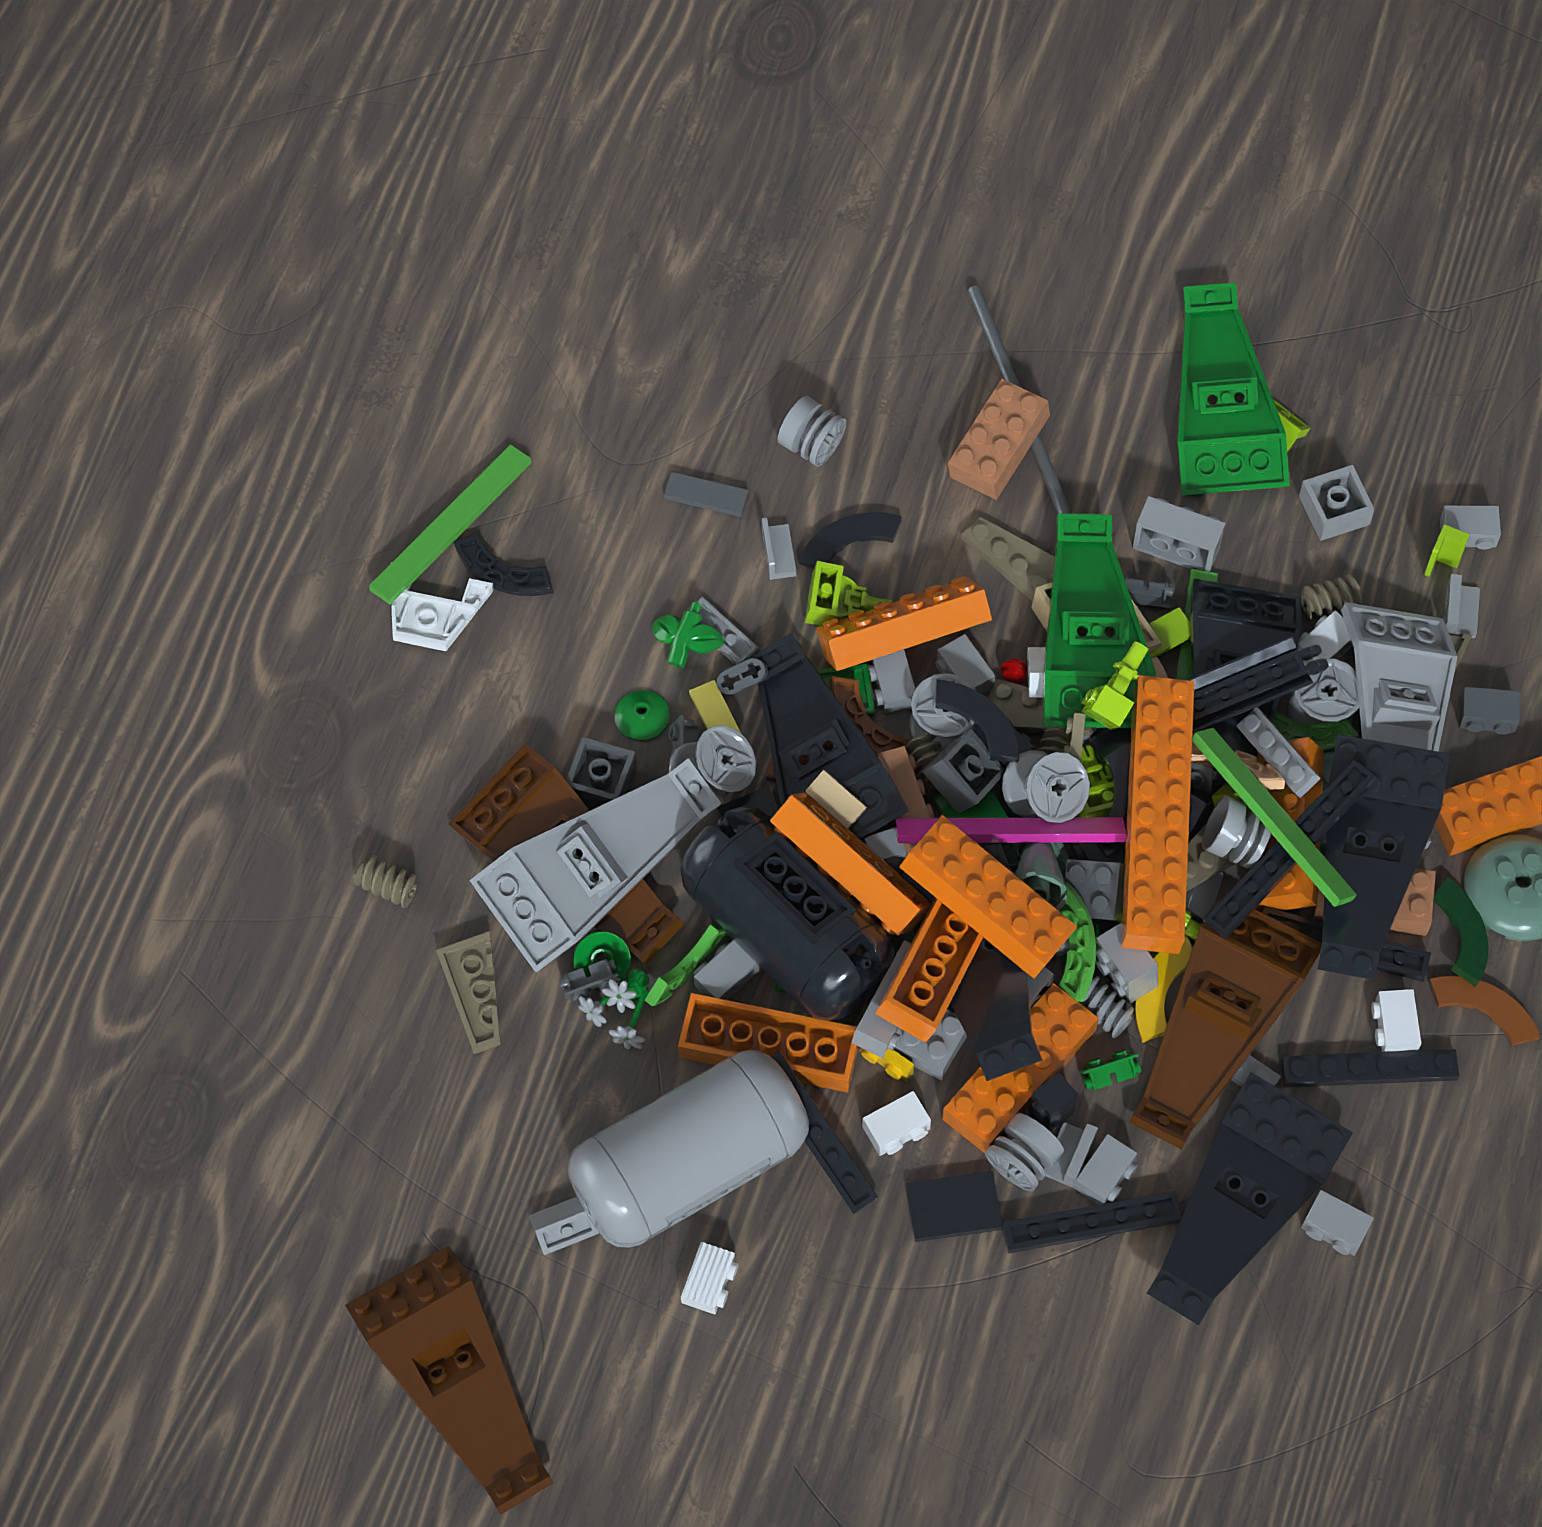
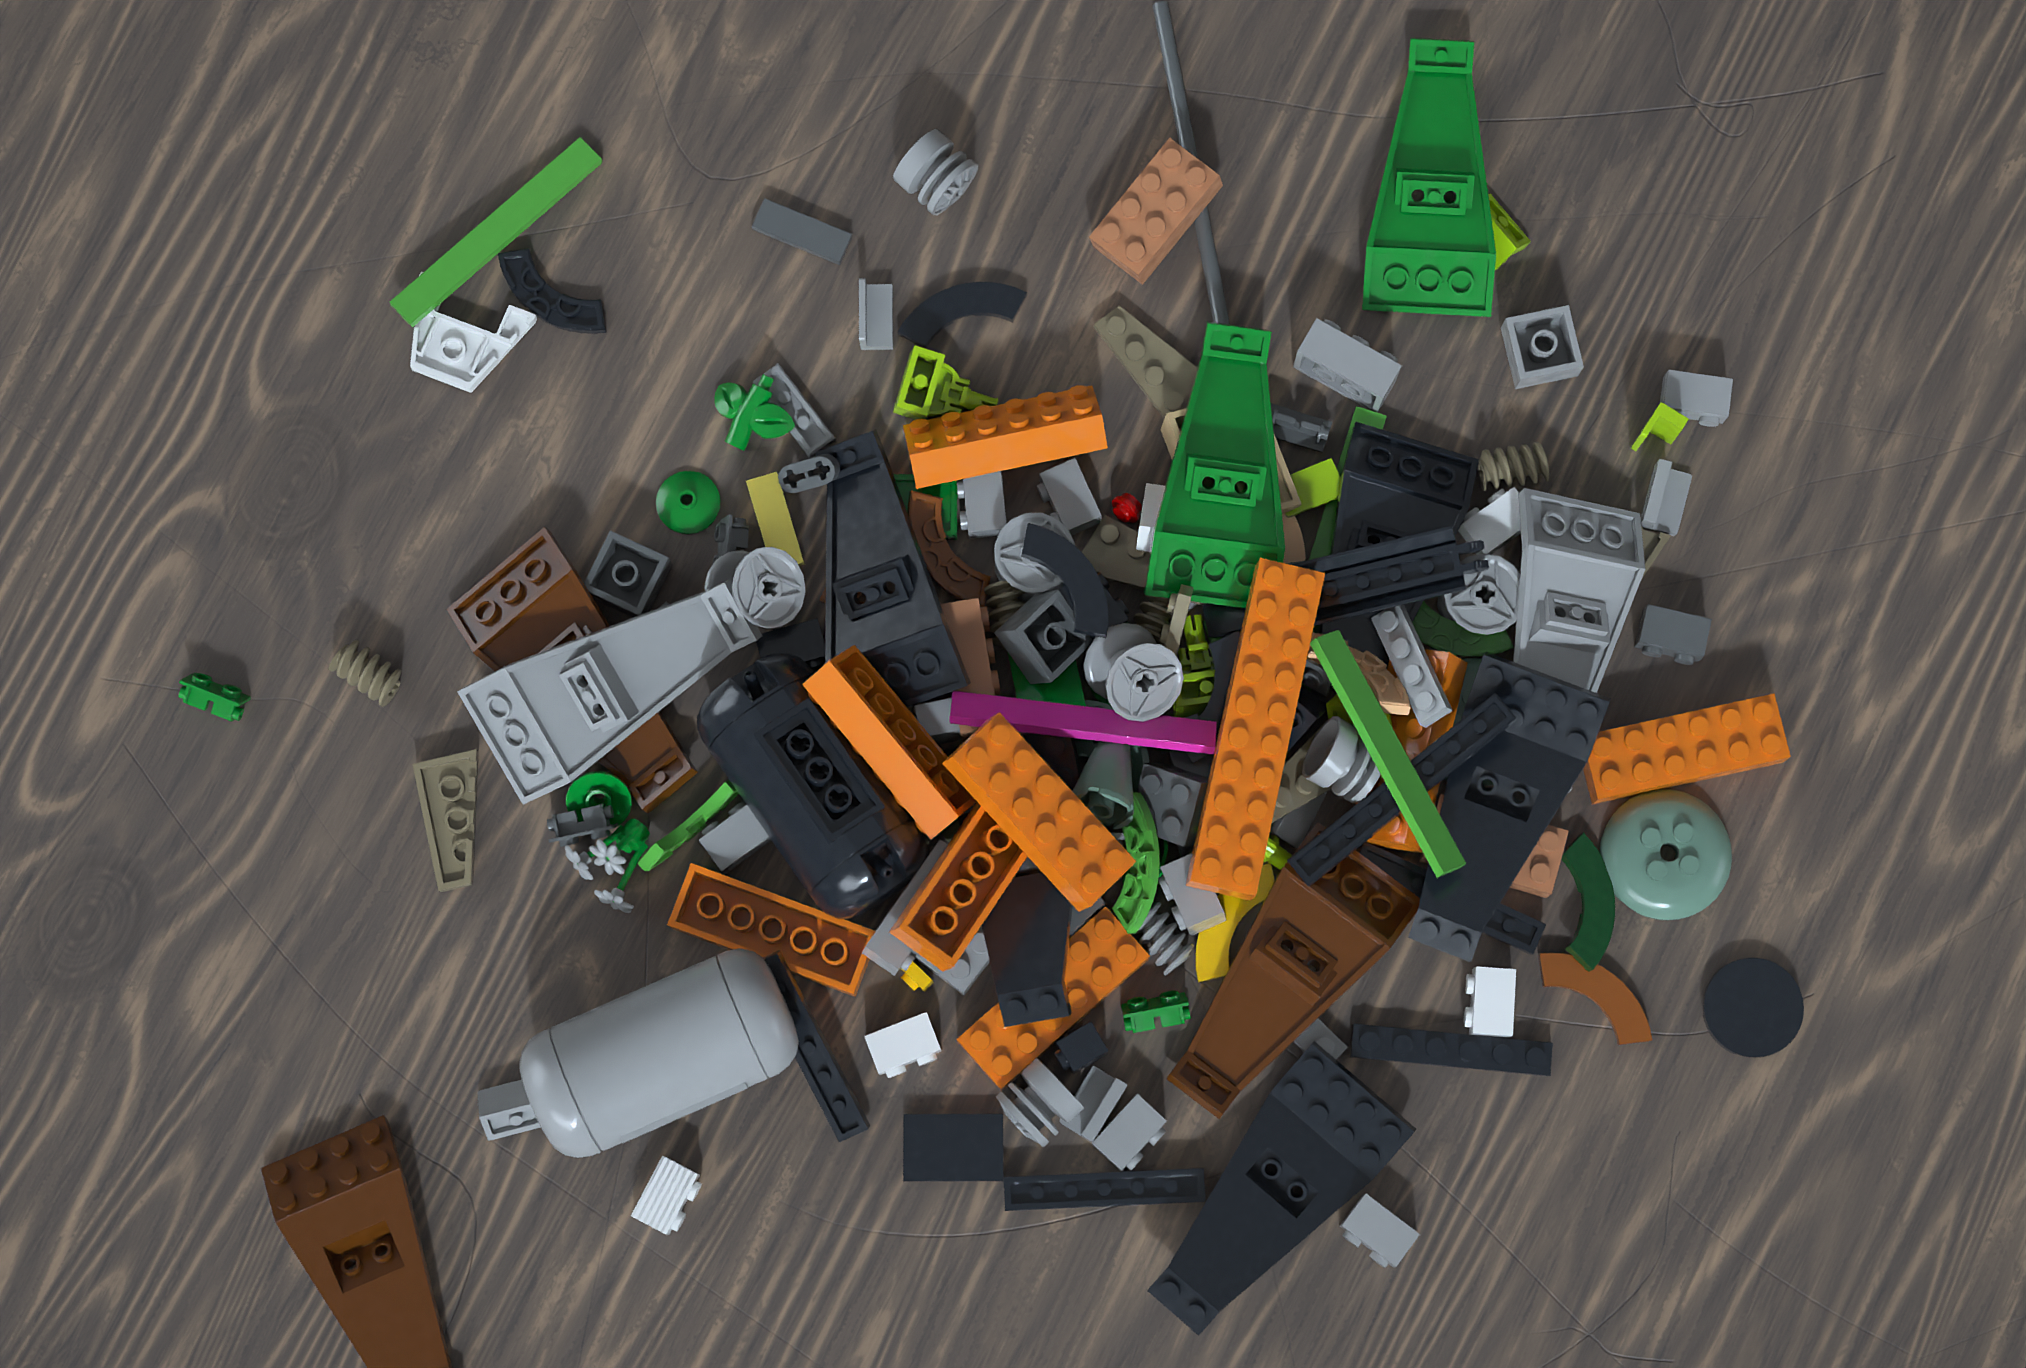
camera: 10 degrees right, 15 degrees up
(266, 922) = (201, 689): none -> green hinge
(836, 799) = (886, 659): tan tile -> none
(1107, 702) = (1220, 583): lime brick -> none

